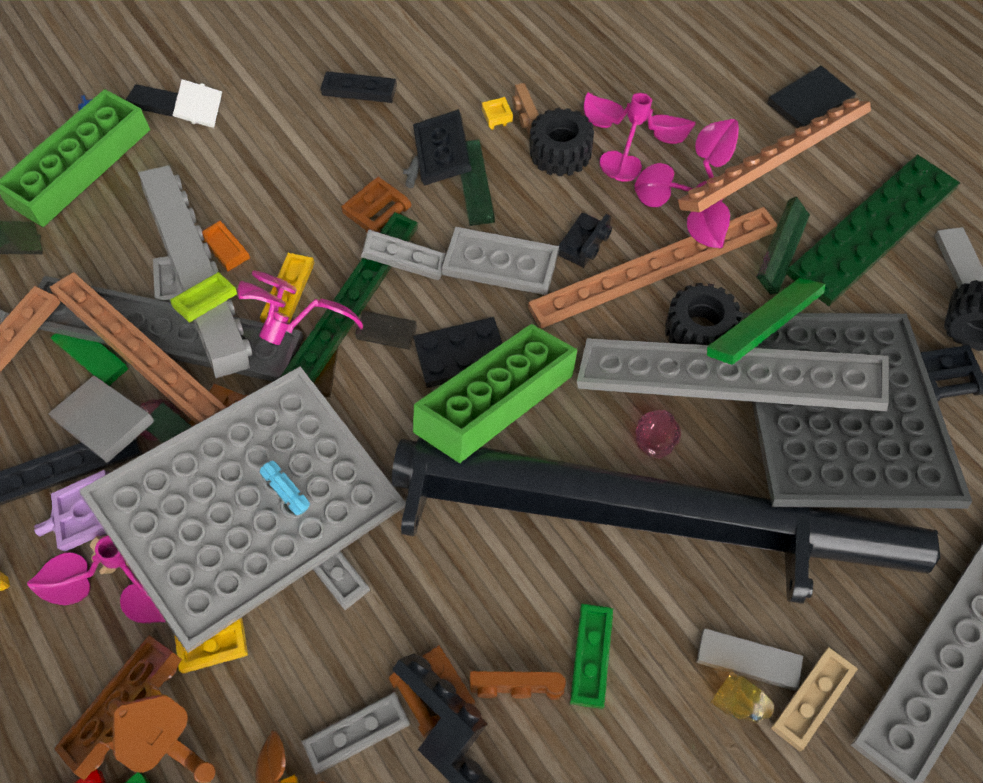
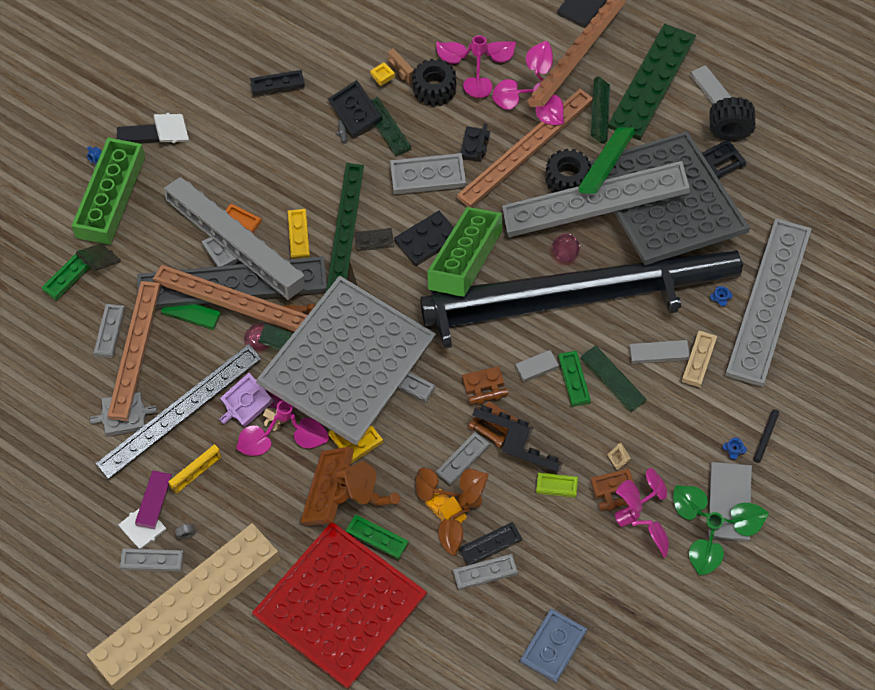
camera: 20 degrees left, 0 degrees up
(101, 418) = (228, 345): light grey tile -> none
(203, 297) = (260, 252): lime tile -> none
(276, 322) = (310, 255): dark pink plant -> none
(284, 487) = (367, 344): medium azure axle -> none
(371, 201) = (325, 159): dark orange plate -> none
(403, 255) = (365, 189): light grey tile -> none
(445, 606) = (482, 381): none -> dark orange plate
(519, 684) = (540, 404): dark orange plate -> none
(540, 611) = (537, 366): none -> light grey tile
(656, 681) = (613, 378): none -> clear green tile
(742, 699) = (662, 370): clear yellow rock -> none
(893, 592) = (720, 290): none -> blue plate

